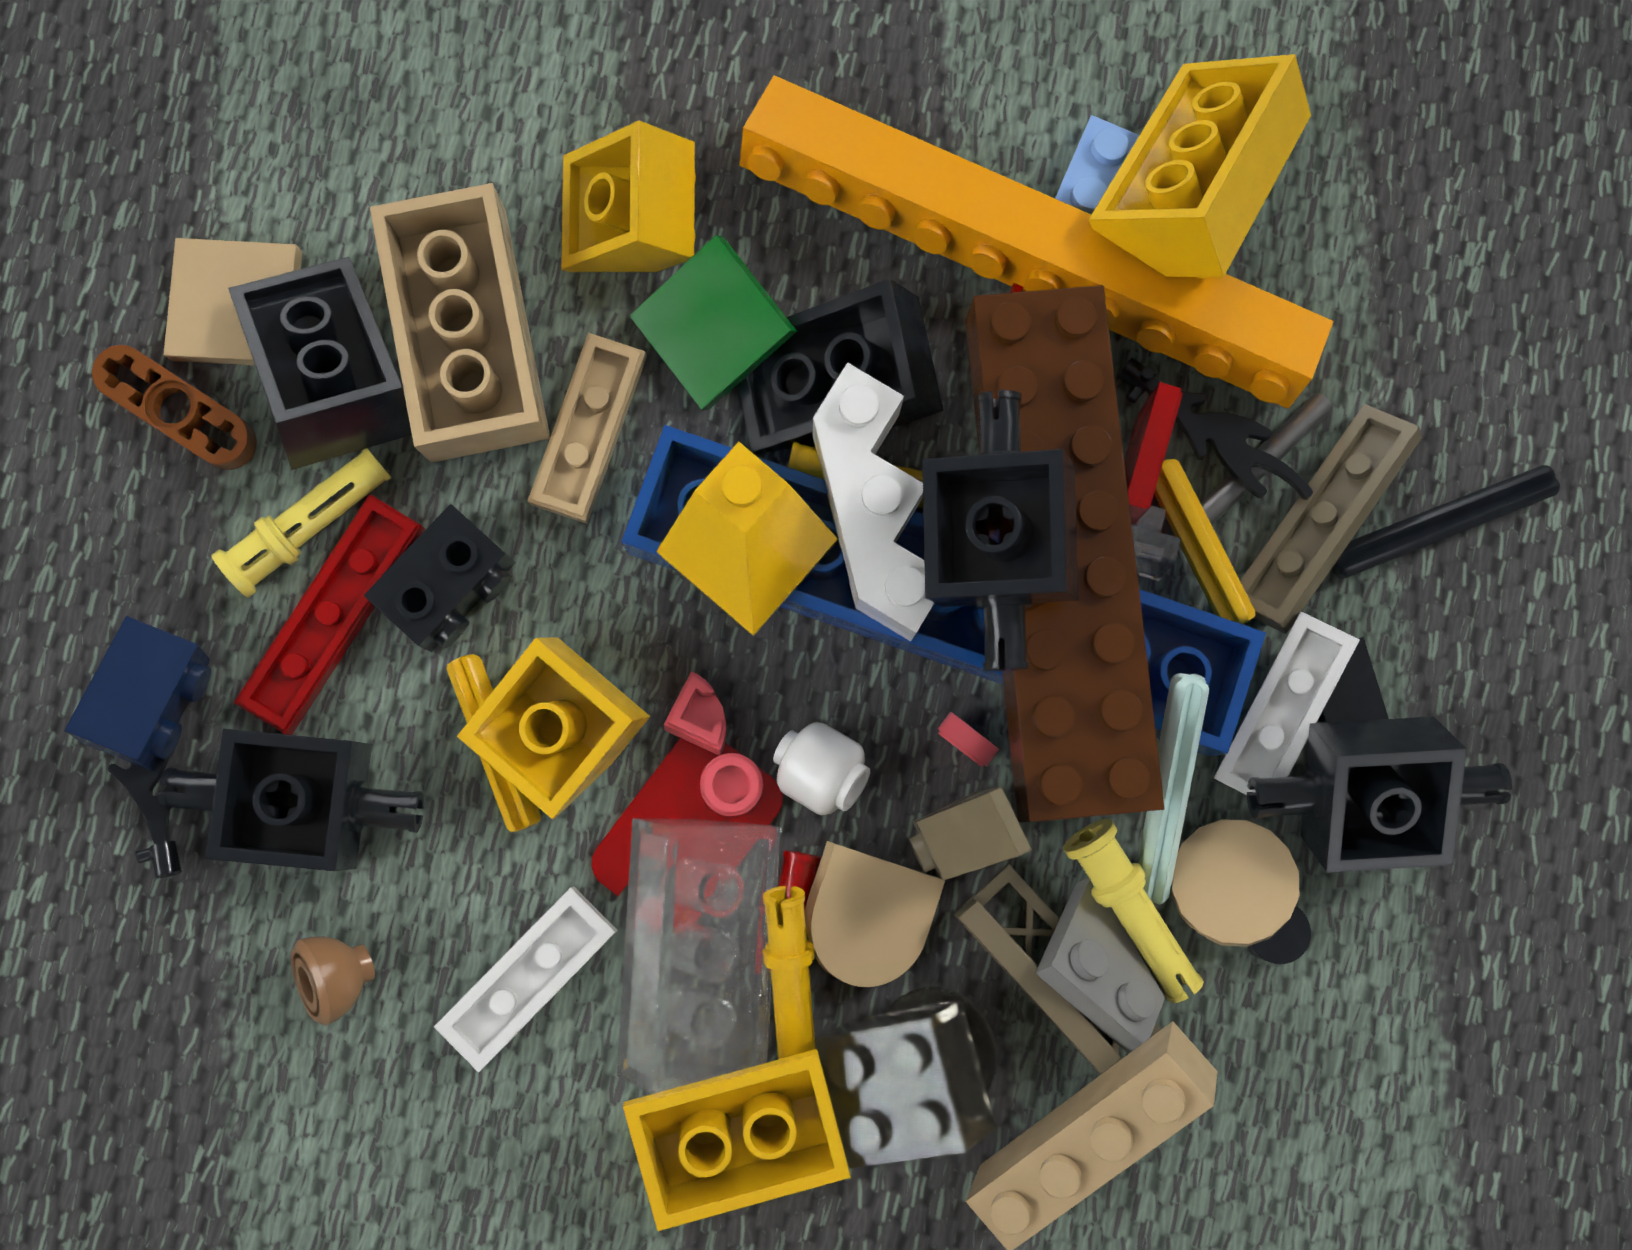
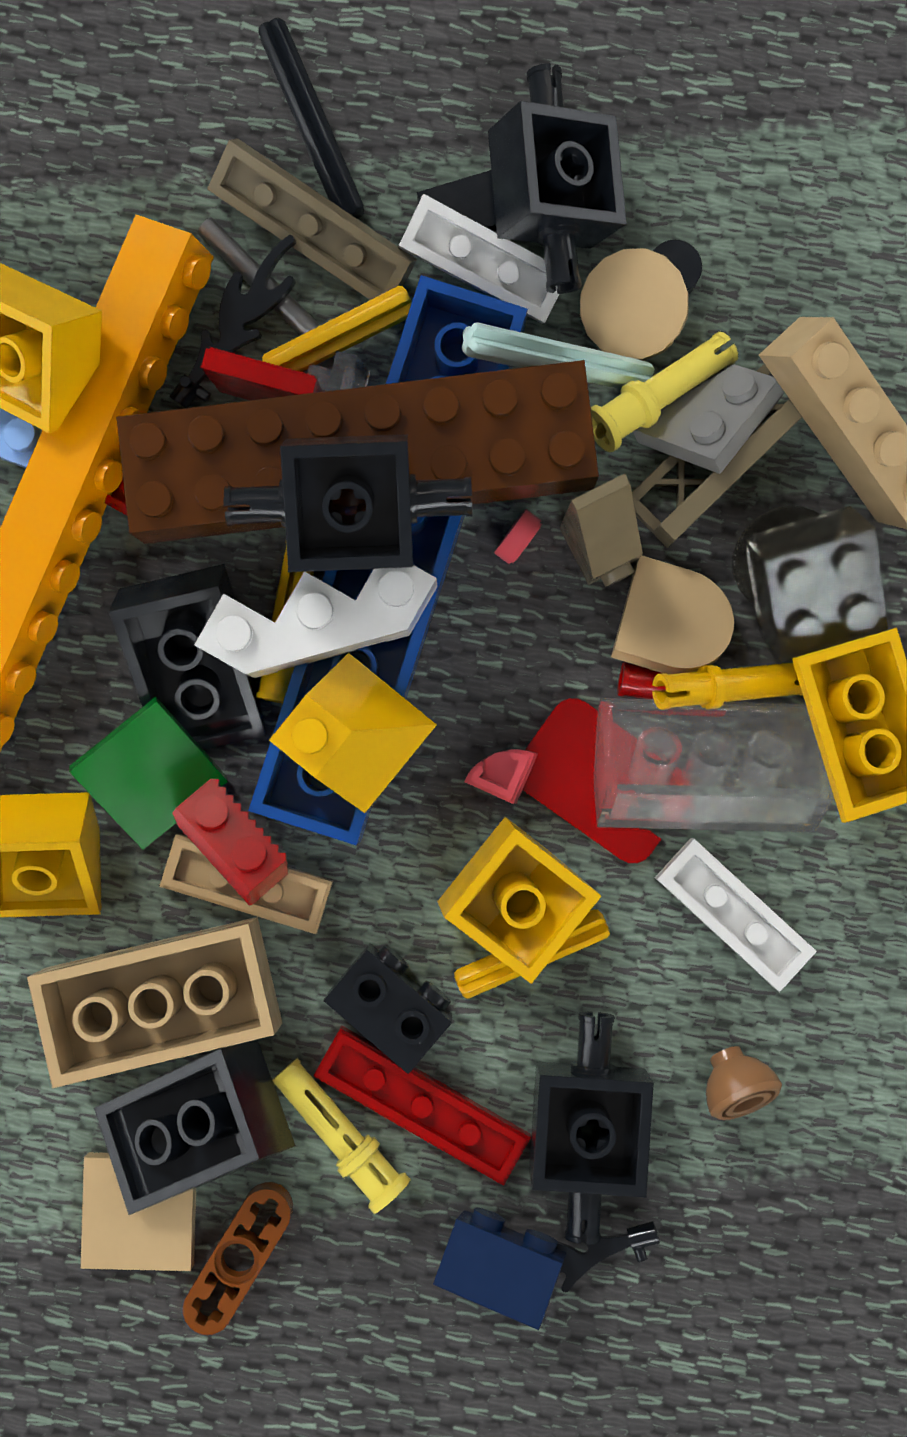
camera: 80 degrees left, 5 degrees up
(632, 408) = (231, 841): none -> red brick
(731, 784) = (563, 742): coral tile -> none
(821, 768) = (547, 664): white head -> none

